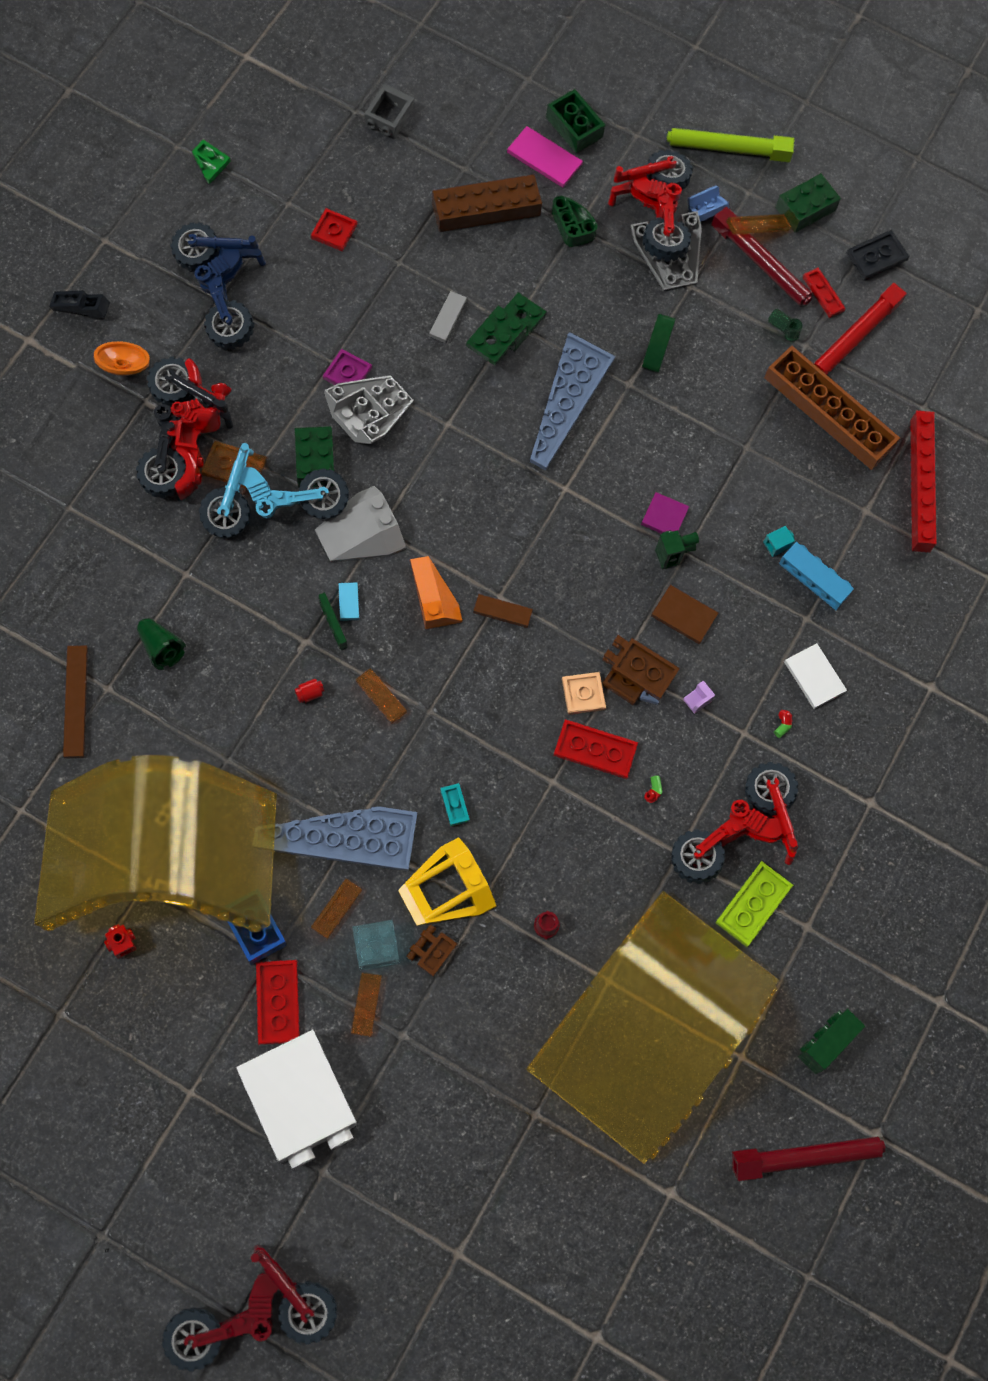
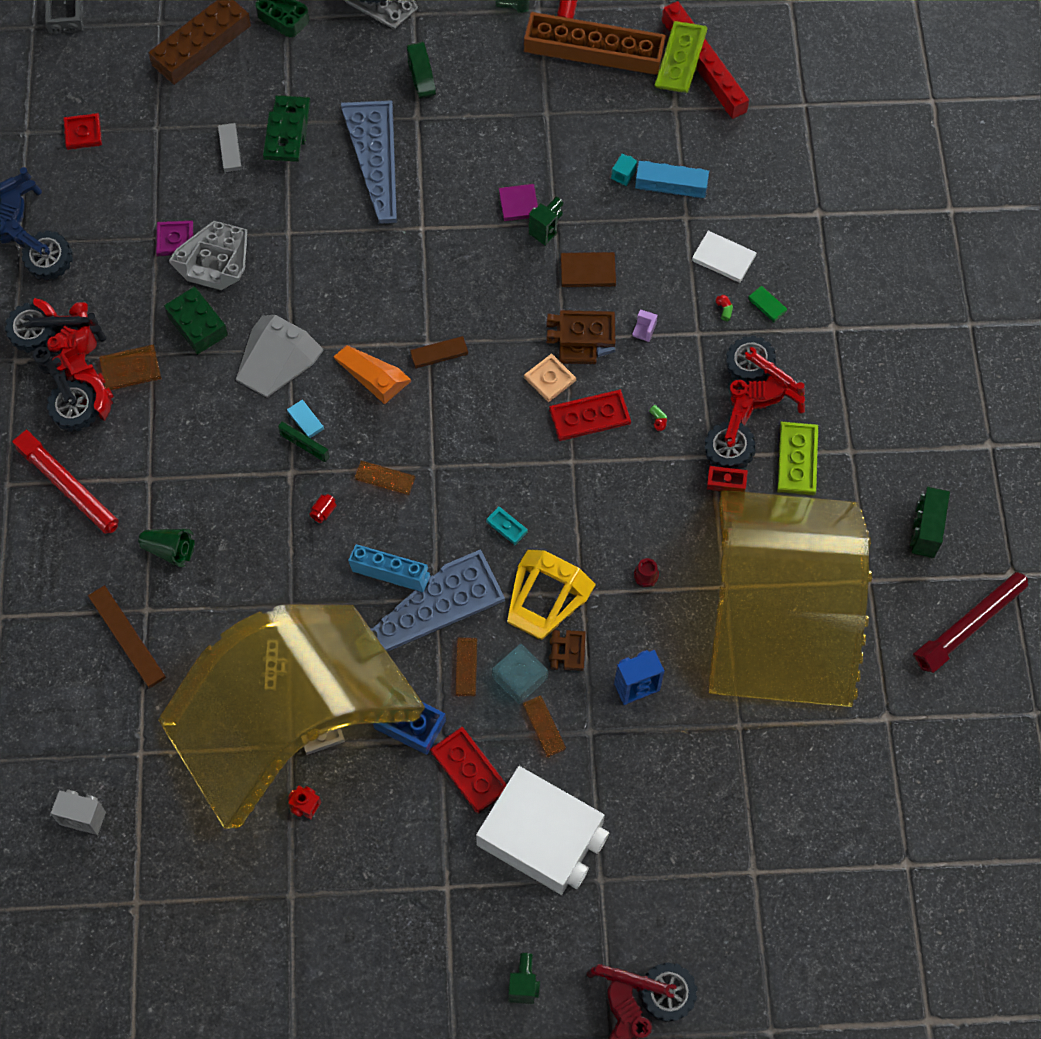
camera: 25 degrees left, 5 degrees down
(114, 535) = (34, 453): none -> red brick
(191, 1223) = (523, 985): none -> dark green brick
(261, 494) = (174, 373): piece -> none
(327, 780) = (389, 568): none -> dark azure brick
(471, 1016) = (638, 676): none -> blue brick
(674, 885) = (727, 479): none -> red brick
(824, 744) = (767, 304): none -> green tile
(901, 466) = (681, 57): none -> lime tile

